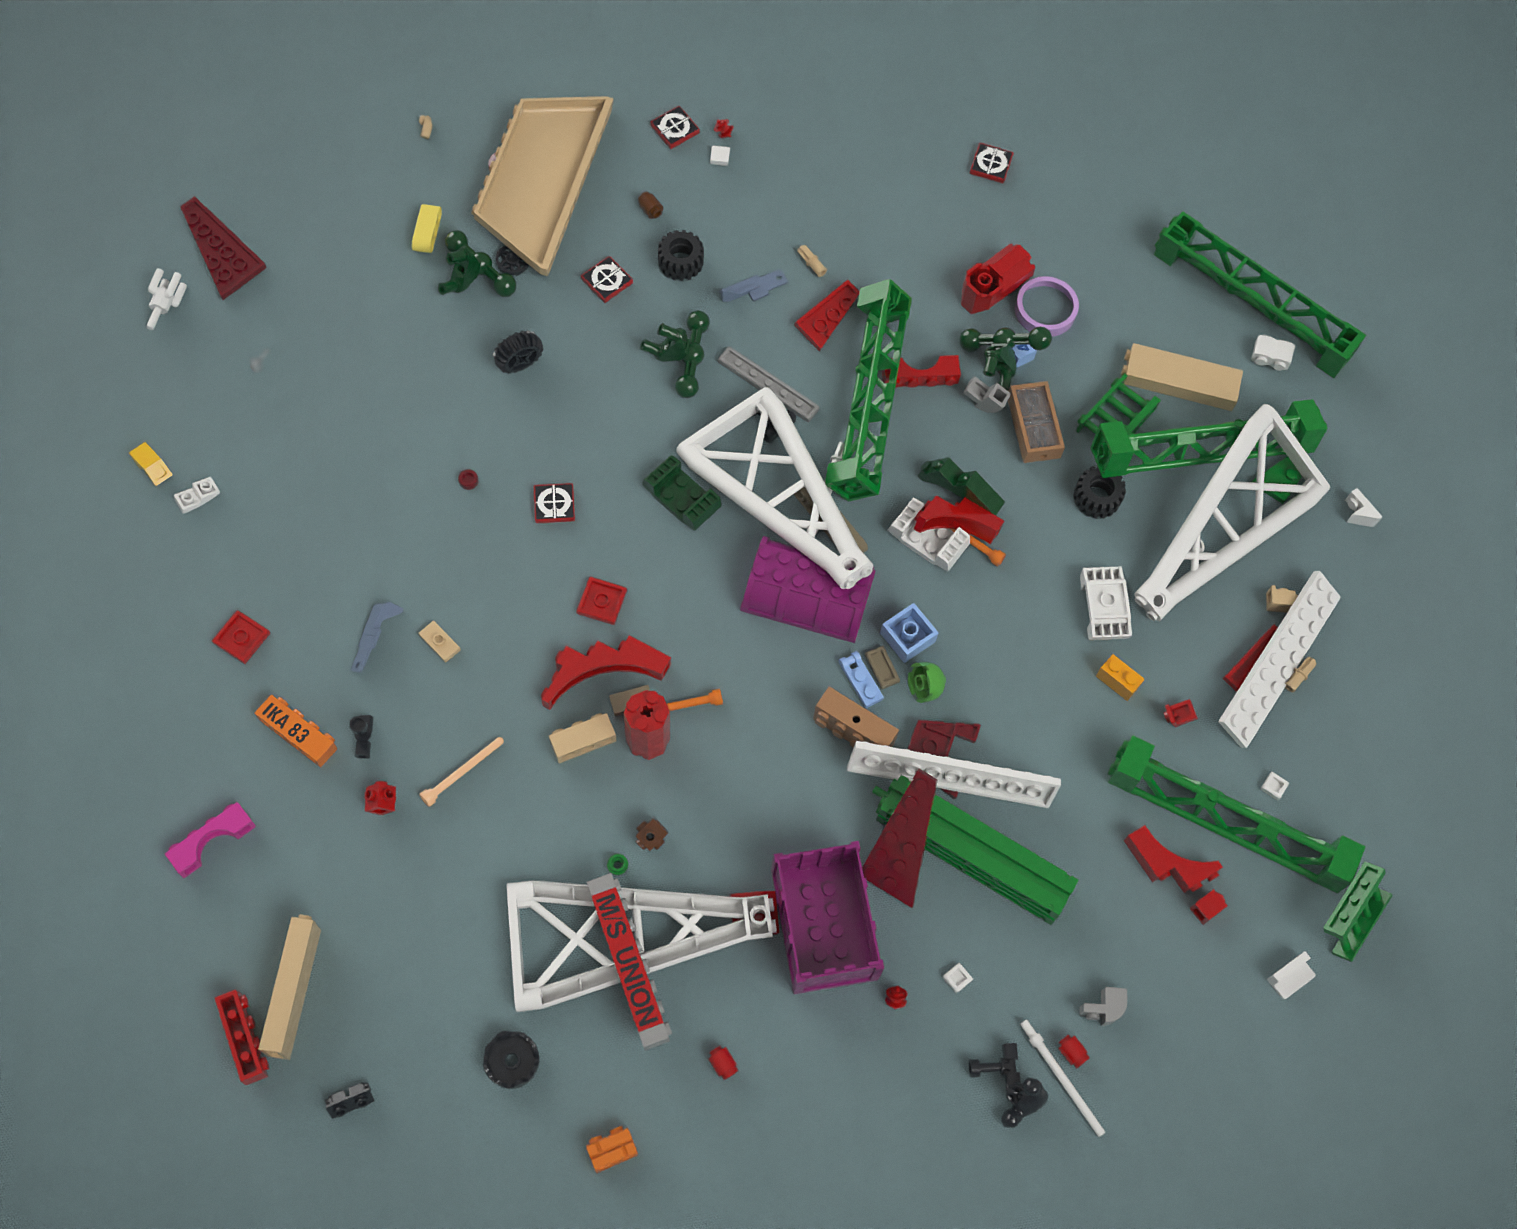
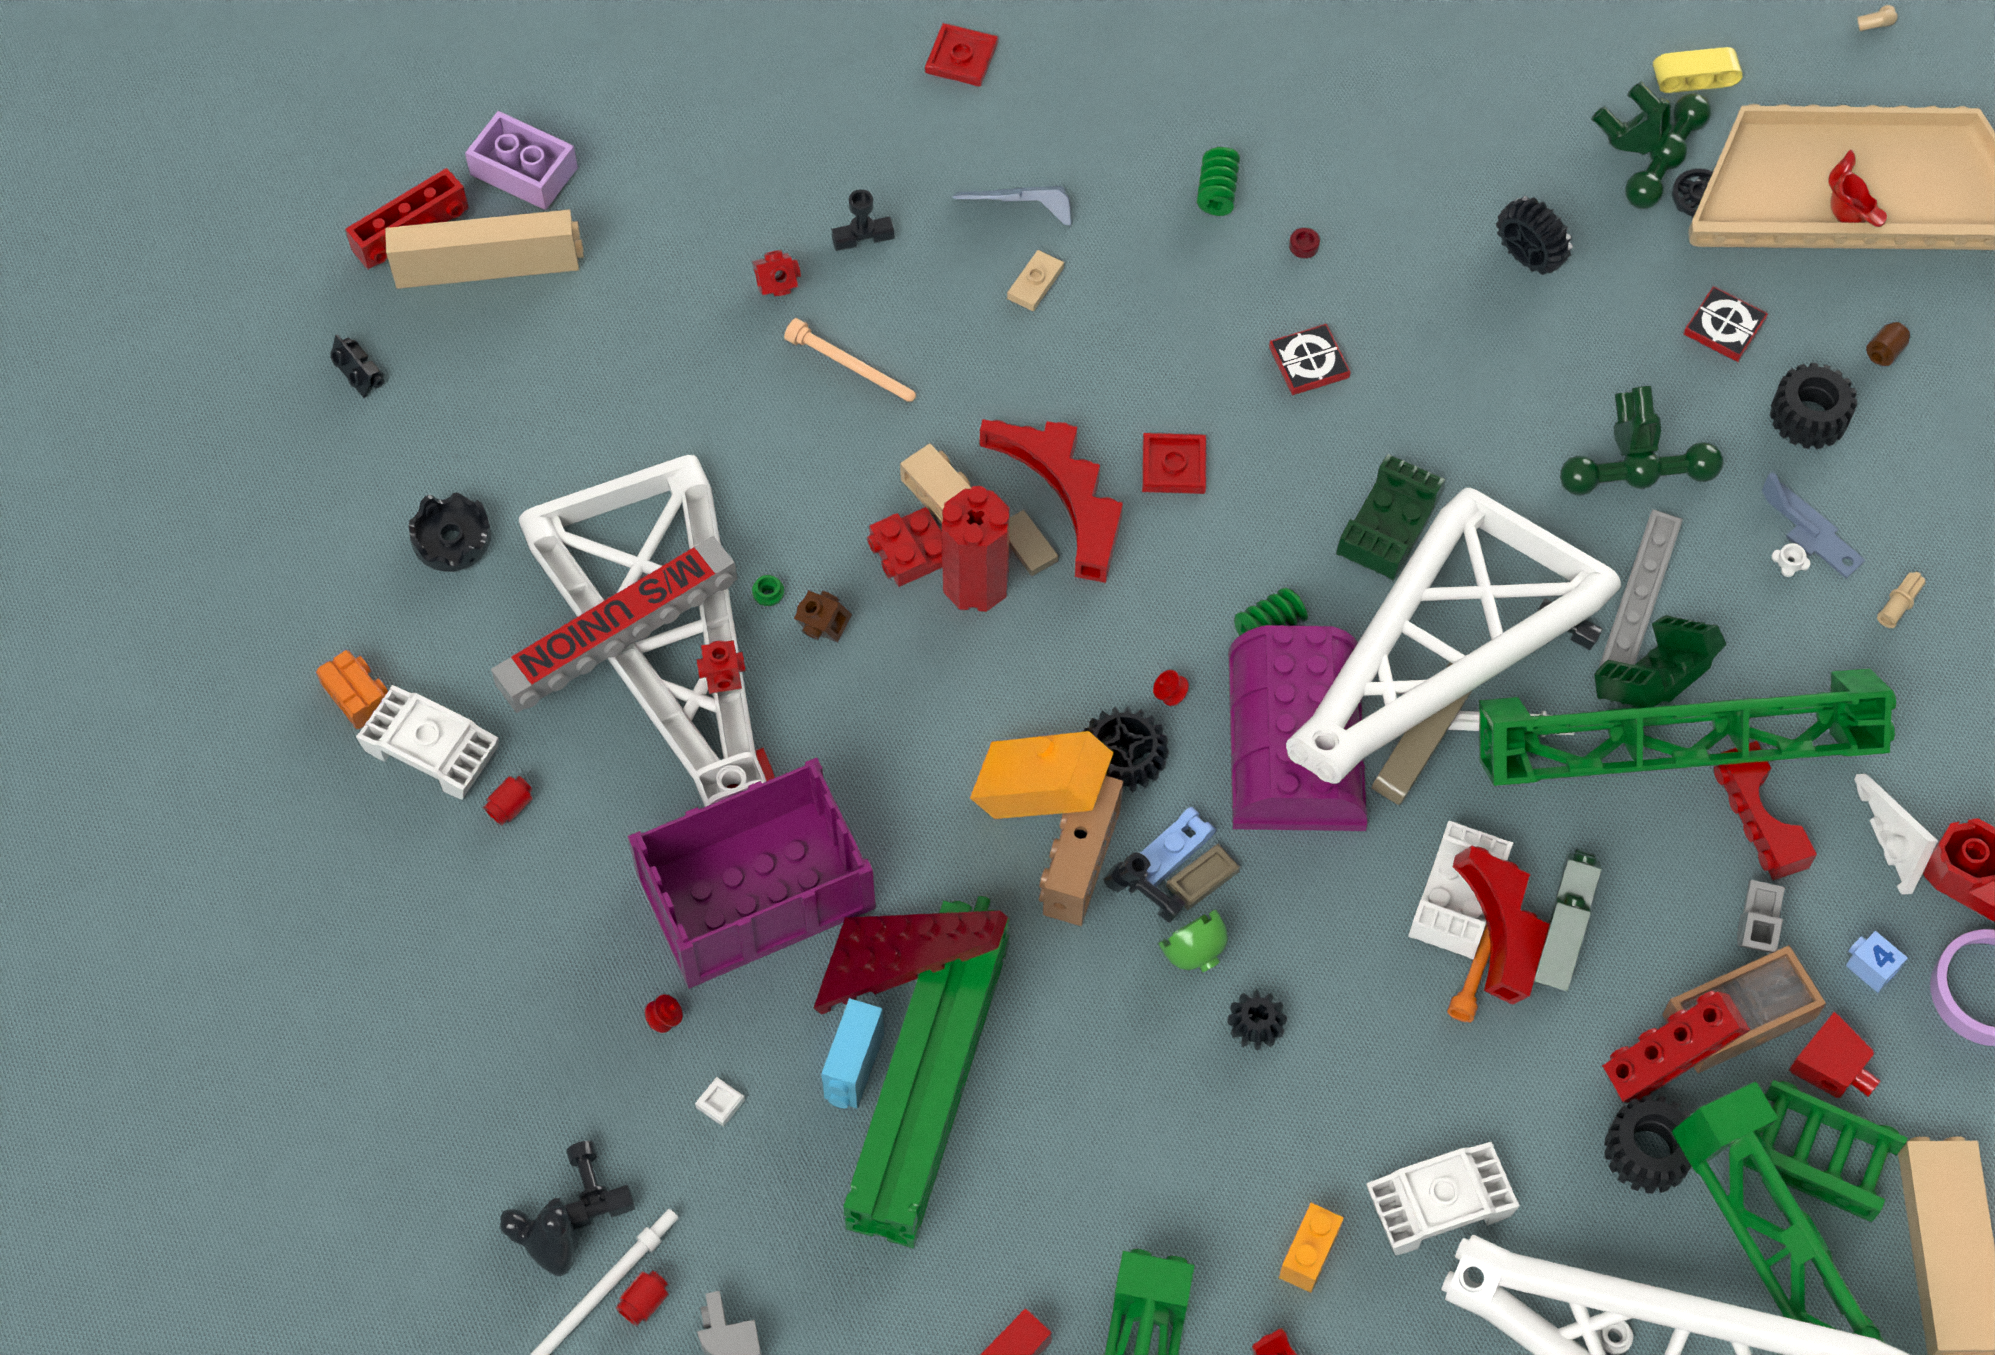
camera: 80 degrees right, 5 degrees down
(187, 854) = (636, 90): dark pink arch -> none
(220, 946) = (521, 160): none -> lavender brick
(295, 730) = (844, 153): orange brick -> none
(408, 514) = (1218, 181): none -> green piece
(553, 184) = (1851, 197): none -> red hair
(612, 769) = (907, 545): none -> red plate
(667, 1105) = (428, 739): none -> white plate
(684, 907) = (721, 666): none -> red brick
(713, 698) = (1067, 649): orange piece -> none
(728, 579) = (1273, 611): none -> green piece
(758, 647) = (1170, 687): none -> red wheel
(770, 298) = (1794, 552): none -> white plate
(799, 685) = (1147, 740): none -> black gear
(810, 731) = (1042, 775): none -> light orange brick
(824, 318) = (1804, 644): red wing -> none
(826, 387) = (1680, 658): none -> dark green plate
(884, 697) = (1133, 874): none -> black bar
(909, 633) = (1270, 893): light blue brick -> none
(937, 739) = (1085, 974): dark red wing -> none
(955, 313) = (1901, 836): none -> white wing
(955, 774) = (1041, 1009): white plate -> none
(955, 890) = (852, 1054): none -> medium azure brick
(977, 657) = (1266, 1028): none -> black gear
(1000, 354) = (1846, 918): dark green connector -> none
(1056, 459) = (1675, 1046): none -> red brick
(1070, 390) = (1836, 1060): none -> red torso

